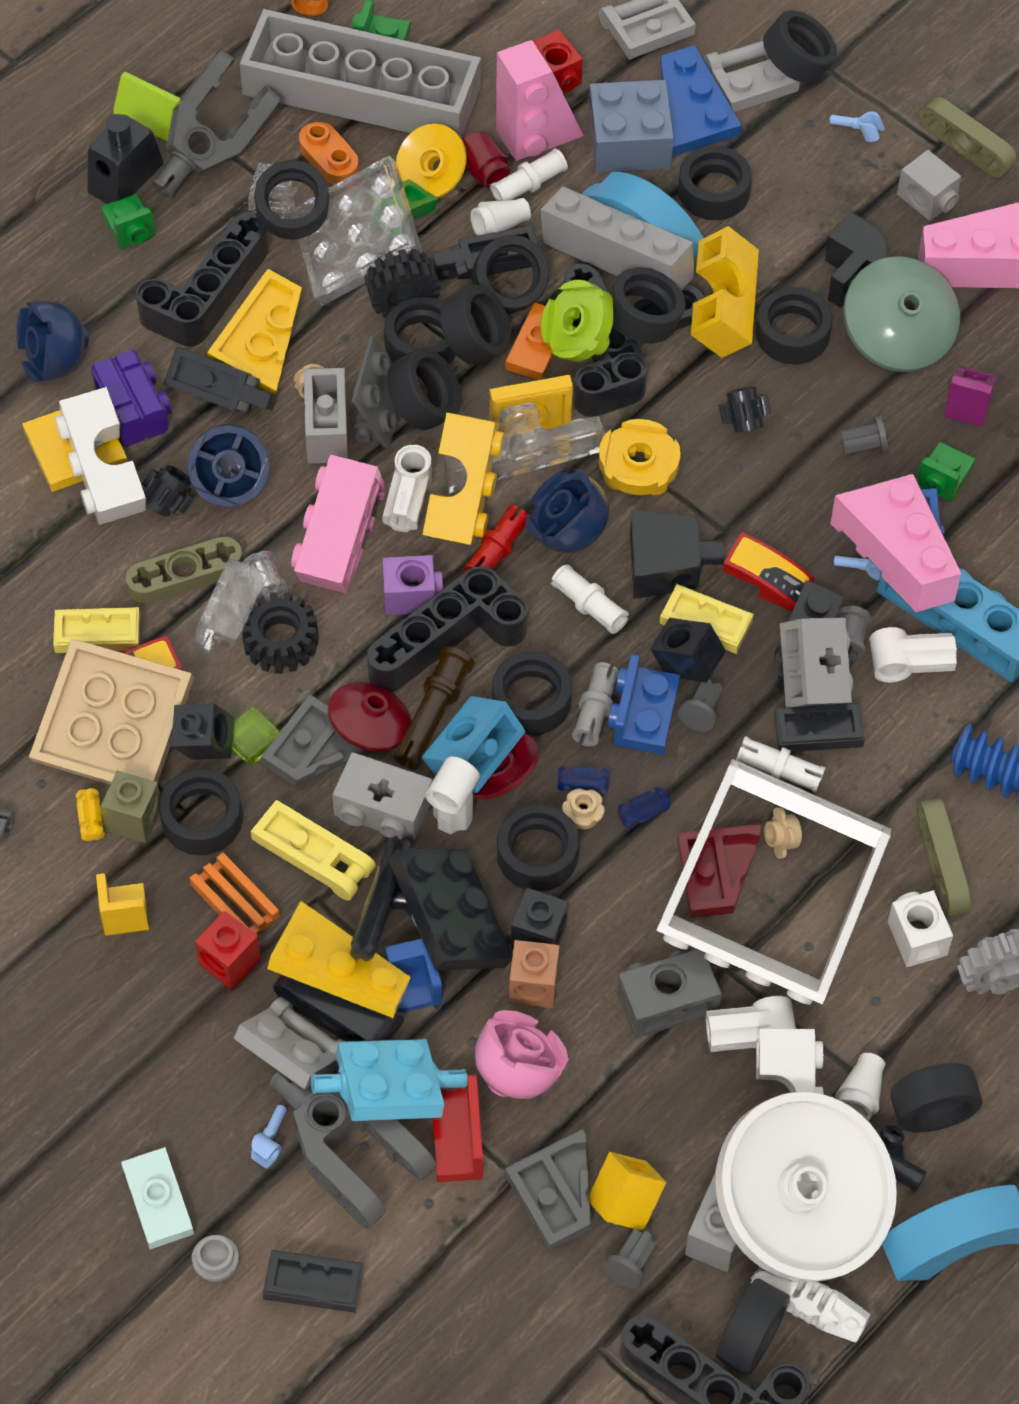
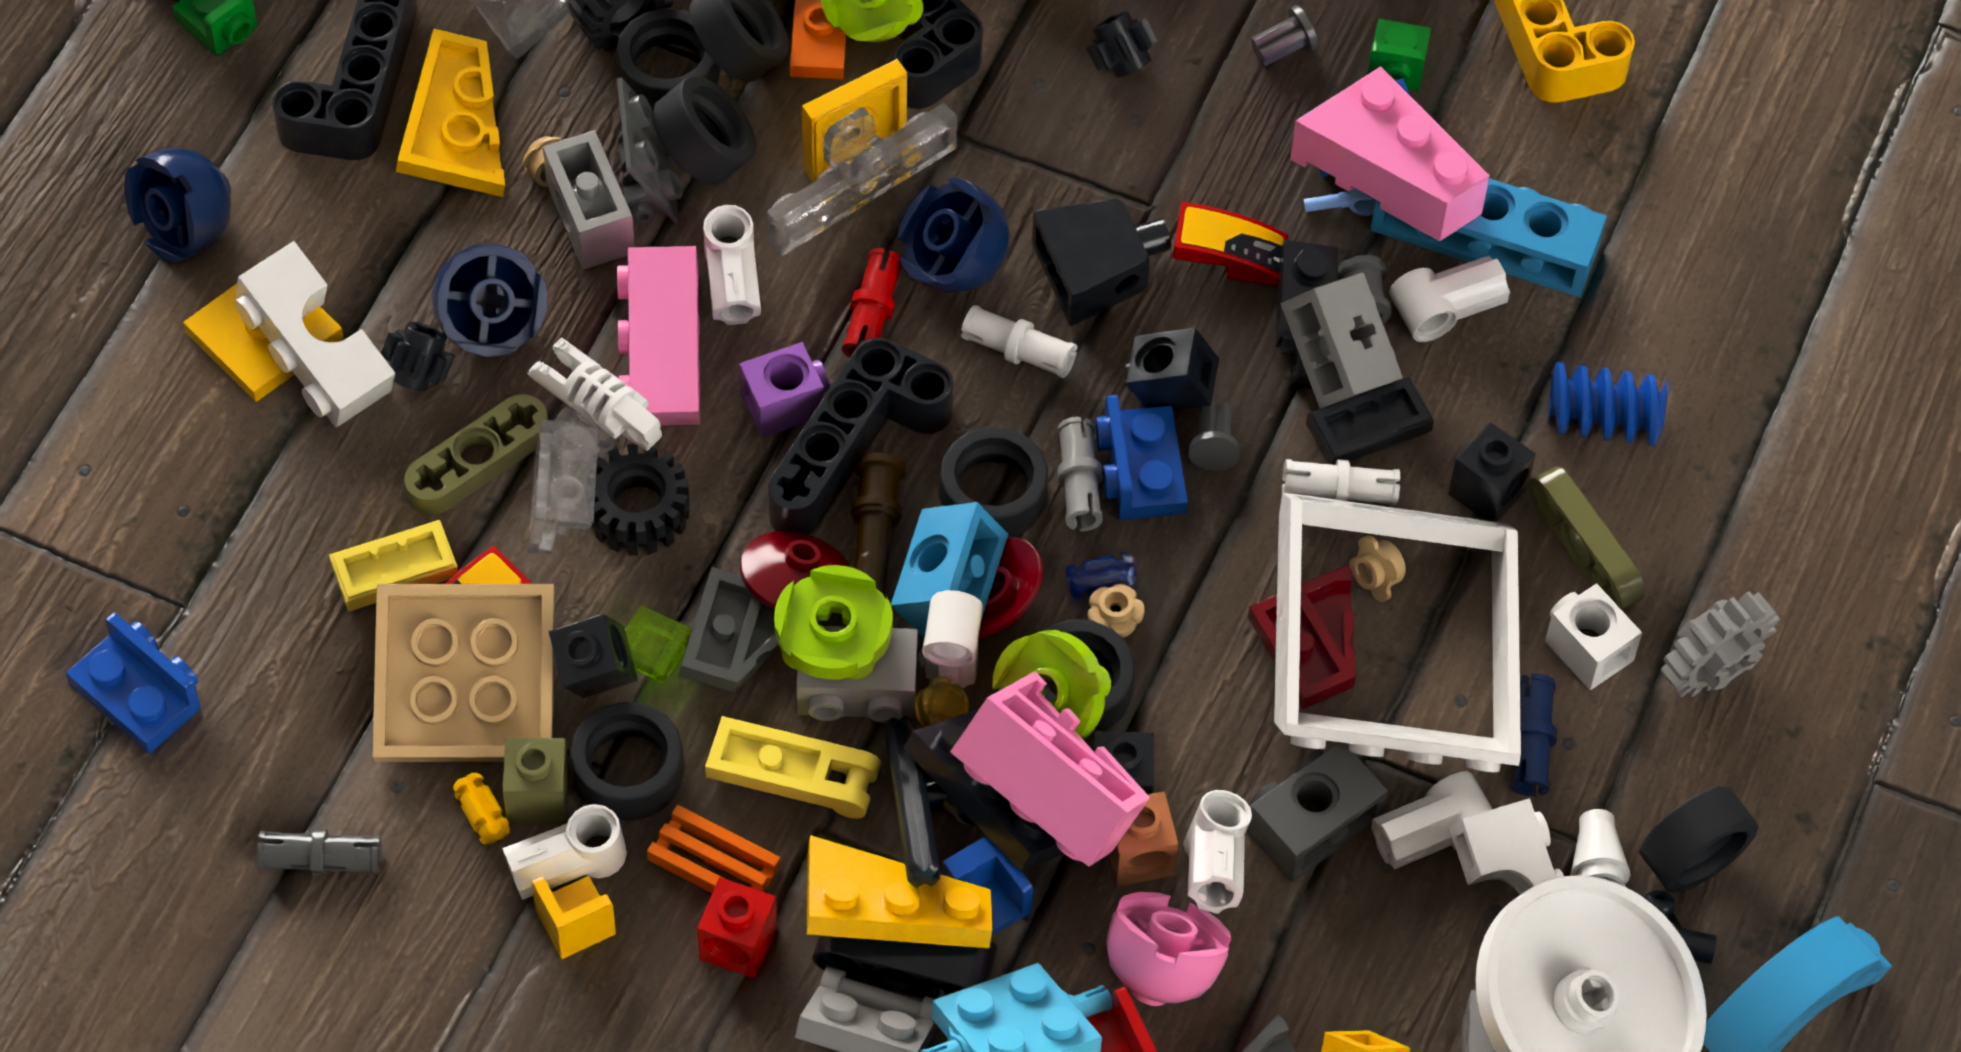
camera: 20 degrees left, 0 degrees up
(131, 861) = (561, 852): none -> white piece
(133, 396) = (336, 251): dark purple brick -> none
(216, 382) = (422, 196): black hinge -> none
(274, 553) = (599, 396): none -> white hinge
(377, 779) = (833, 654): none -> lime plate
(424, 835) = (940, 701): none -> clear yellow plate
(475, 445) = (814, 282): yellow arch -> none
(477, 904) = (1050, 771): none -> bright pink wedge
(524, 853) = (1071, 665): none -> lime plate
(583, 999) = (1217, 851): none -> white piece
(639, 477) = (1004, 169): yellow plate -> none
(643, 807) = (1190, 586): clear blue piece -> none
(728, 621) = (1162, 313): light yellow plate -> none
(848, 986) = (1536, 735): none -> dark blue pin
(891, 789) = (1491, 473): none -> black brick

